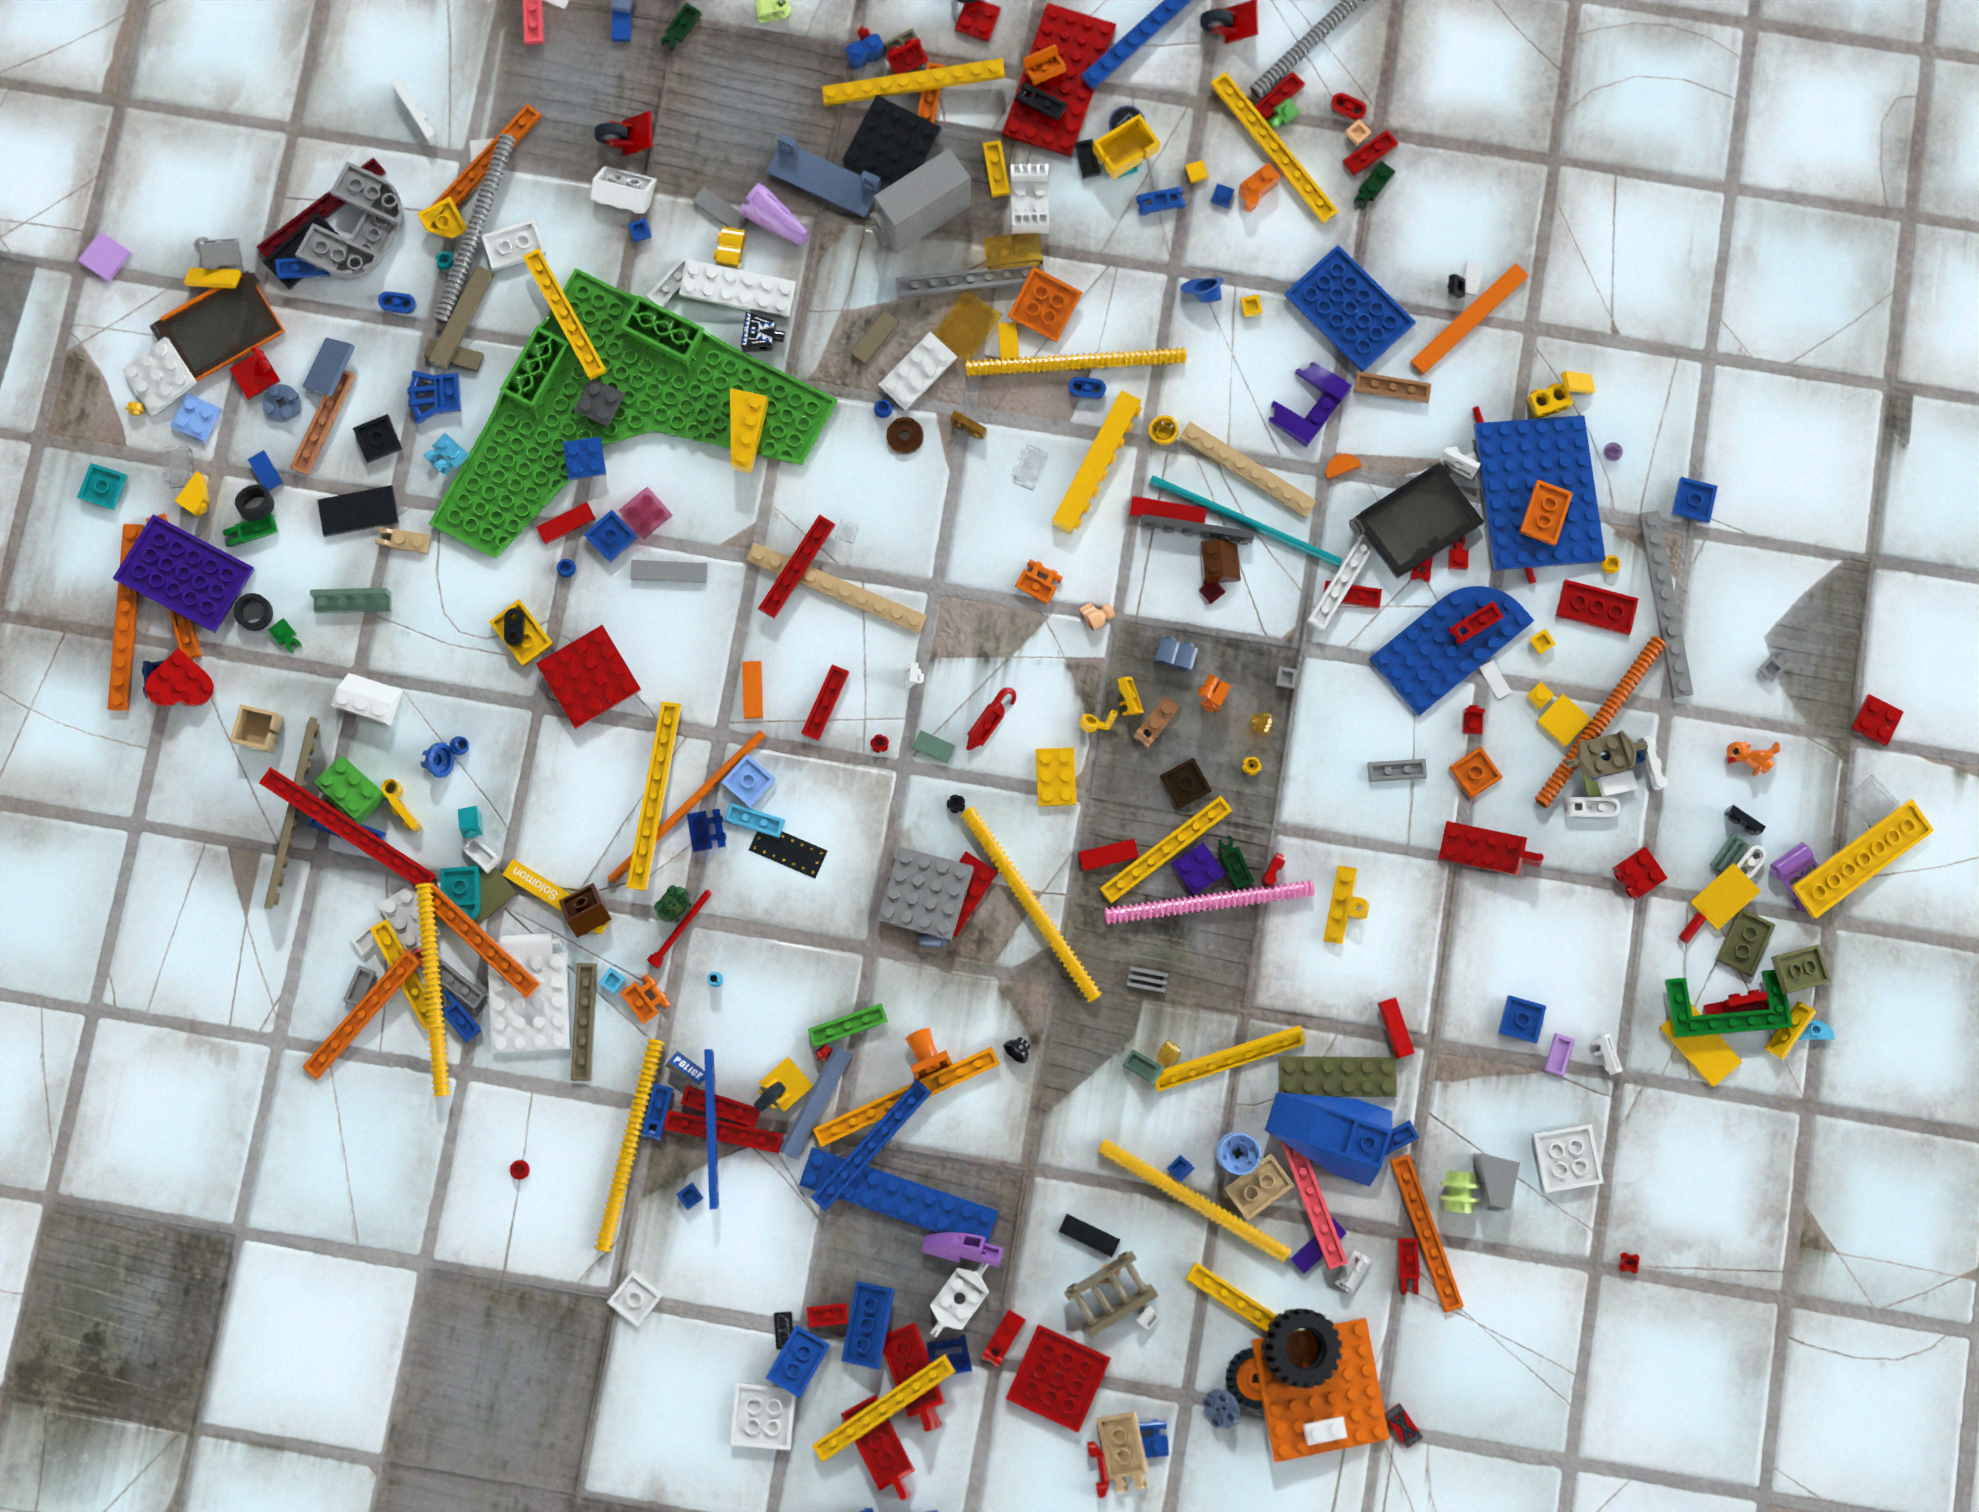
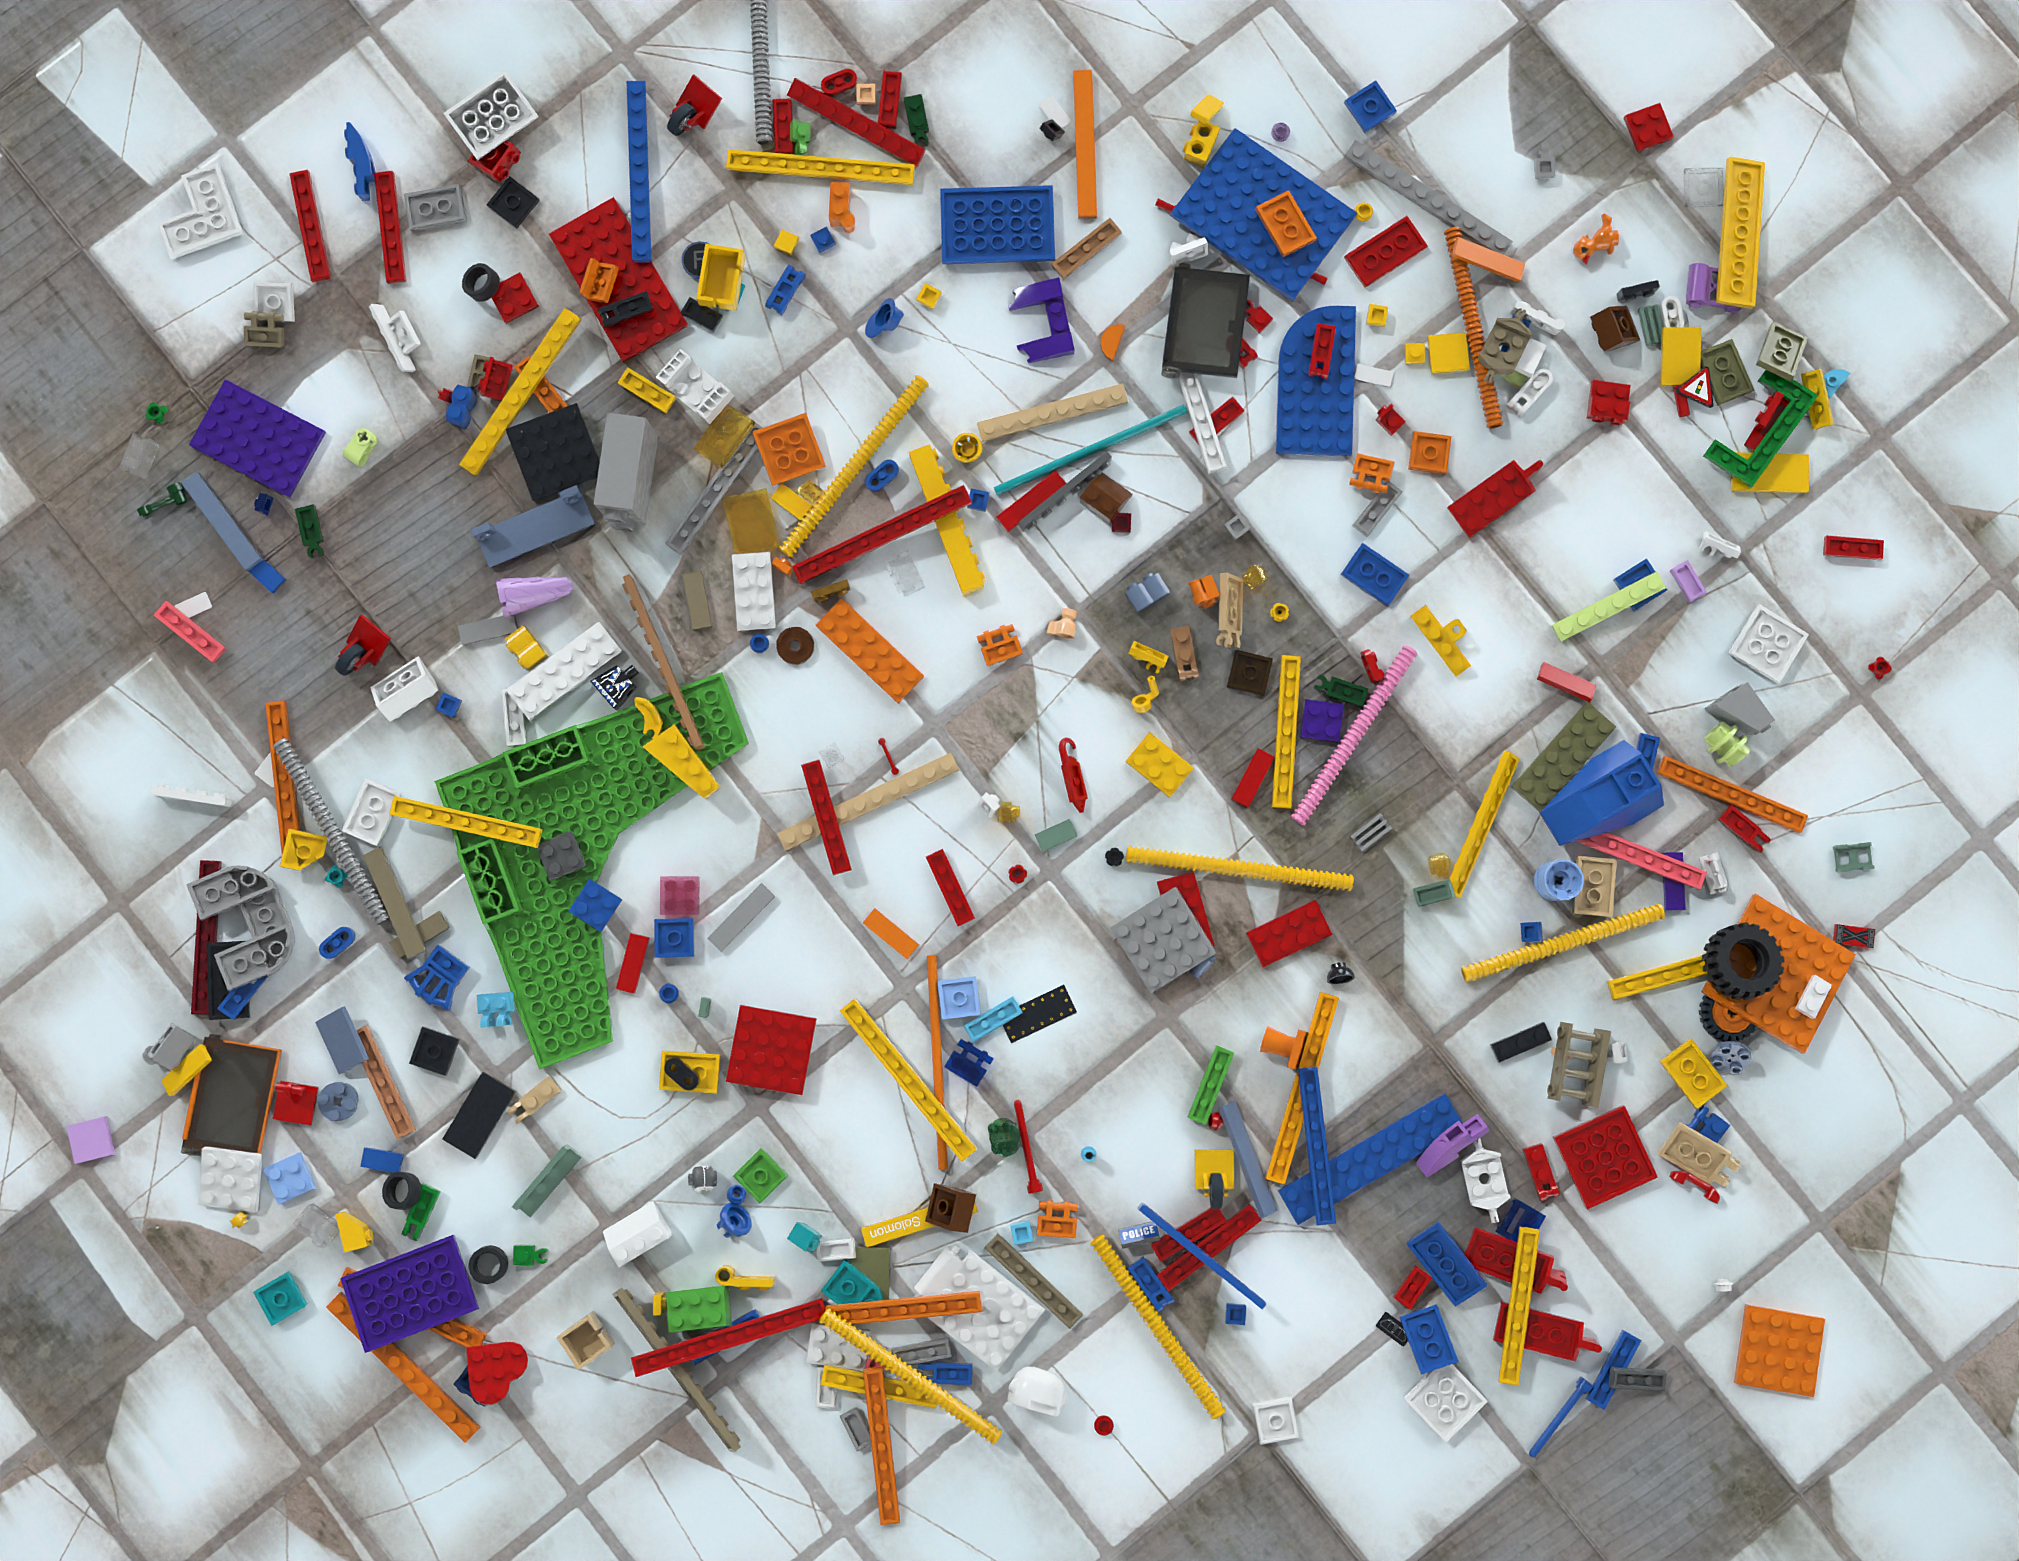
camera: 45 degrees left, 5 degrees up
(329, 758) = (659, 1303): none -> yellow plate
(449, 710) = (702, 1179): none -> dark grey head
(488, 751) = (760, 1175): none -> bright green tile
(502, 1094) = (1037, 1391): none -> white piece
(578, 602) = (704, 1007): none -> sand green tile
(759, 377) = (651, 716): none -> yellow piece
(802, 357) = (659, 655): none -> medium nougat plate
(876, 587) = (895, 770): none -> red hinge
(919, 696) = (1008, 812): none -> clear yellow plate
(949, 492) = (869, 650): none -> orange plate
(956, 375) = (782, 565): none -> orange plate
(1014, 985) = (1289, 933): none -> red plate
(1028, 347) = (810, 491): none -> clear yellow plate
(1043, 424) = (882, 534): none -> red plate
(1132, 472) = (979, 500): none -> blue plate
(1183, 1391) = (1693, 1073): none -> yellow plate
(1218, 726) = (1230, 610): none -> tan tile
(1331, 144) = (856, 122): none -> red plate
(1345, 812) = (1375, 574): none -> blue tile
(1424, 740) = (1372, 467): none -> orange plate
(1468, 1365) = (1853, 859): none -> sand green piece
(1483, 1009) = (1608, 606): none -> yellowish green plate
(1661, 686) = (1488, 259): none -> orange tile
(1700, 828) = (1614, 328): none -> reddish brown slope
(1702, 1159) = (1853, 547): none -> red plate
(1713, 931) = (1698, 388): none -> piece

